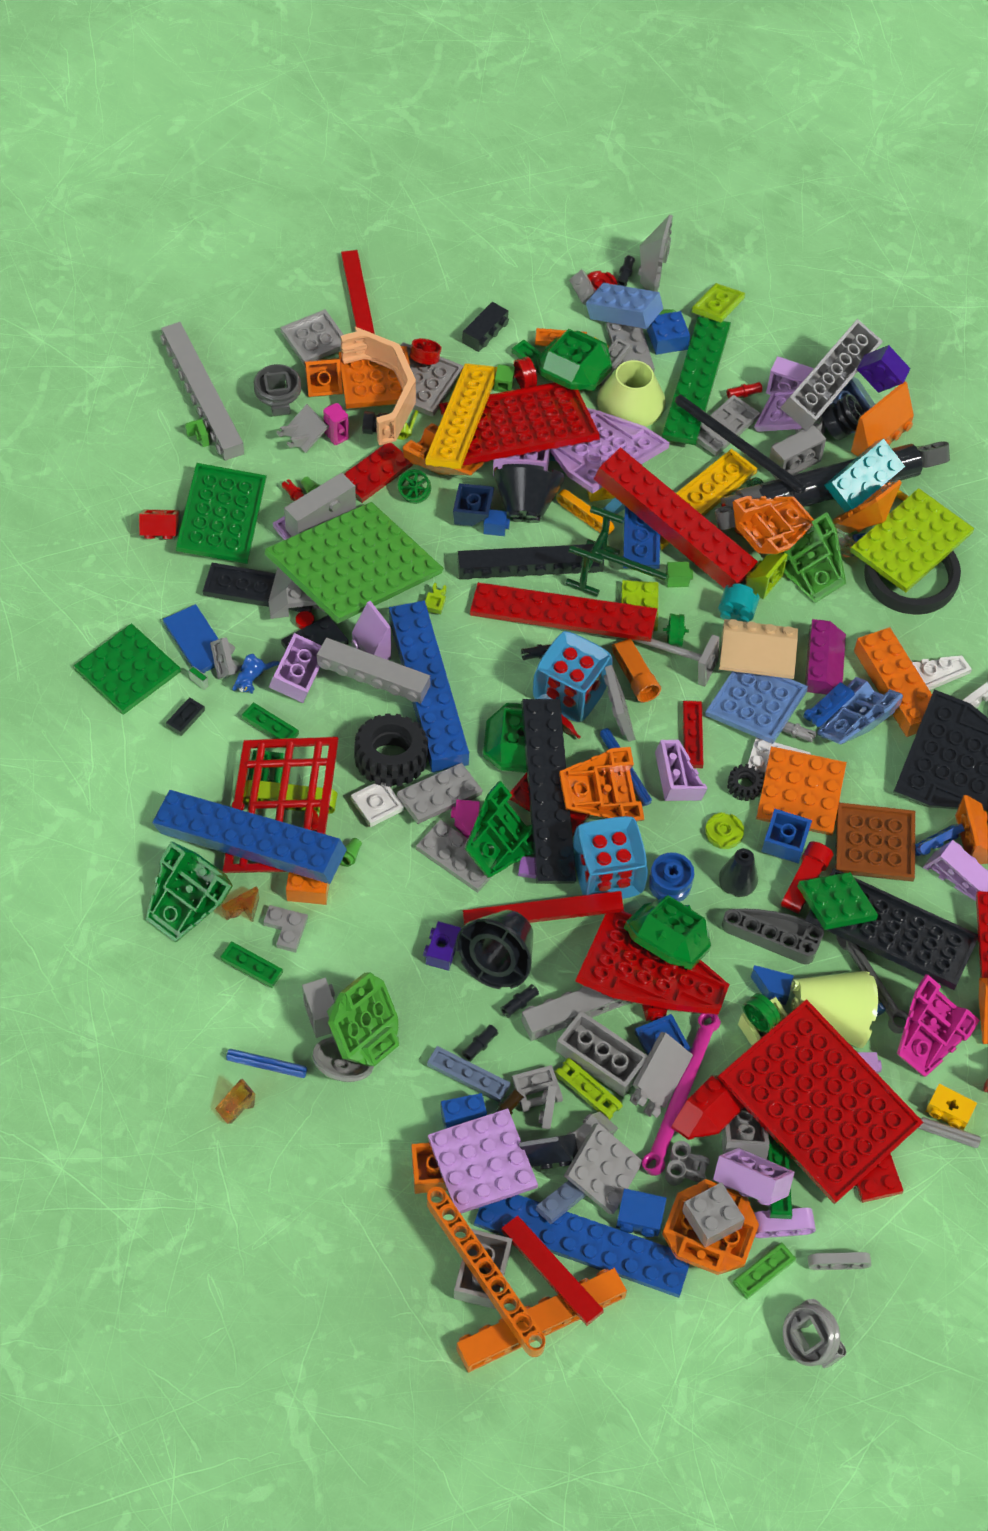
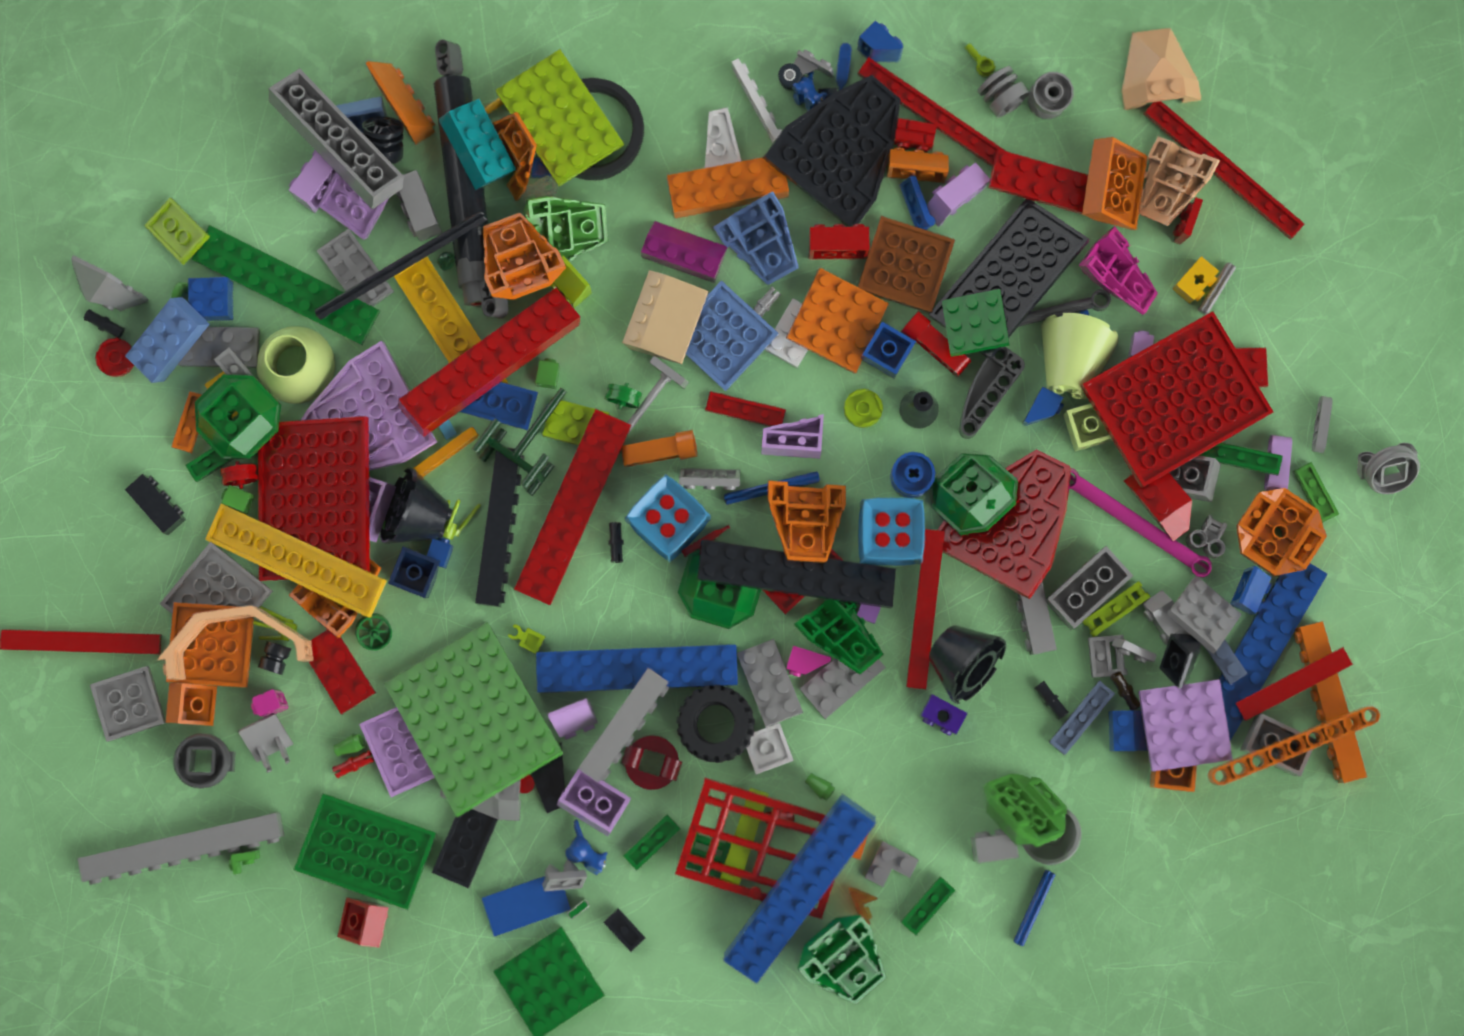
camera: 75 degrees left, 25 degrees up
(237, 1100) = (1075, 945): clear orange slope -> none
(320, 505) = (393, 742): light grey brick -> none
(340, 722) = (633, 757): none -> dark red piece
(425, 351) = (195, 584): red wheel -> none
(519, 526) = (450, 528): none -> lime plant
(519, 1000) = (1015, 653): black pin -> none
(582, 286) = (118, 378): light grey plate -> none
(649, 1033) = (1081, 528): blue plate -> none
(660, 1074) = (1121, 539): light grey tile -> none
(713, 1214) = (1280, 528): light grey brick -> none
(738, 603) = (603, 321): teal brick -> none
(745, 390) = (309, 236): red pin -> none
(747, 773) = (823, 364): black tyre -> none
(753, 1176) = (1248, 481): lavender brick -> none
(761, 1012) = (1091, 430): green wheel -> none
(829, 704) = (742, 263): blue plate -> none
(876, 774) = (838, 242): none -> red brick
(883, 369) = (346, 81): dark purple brick -> none

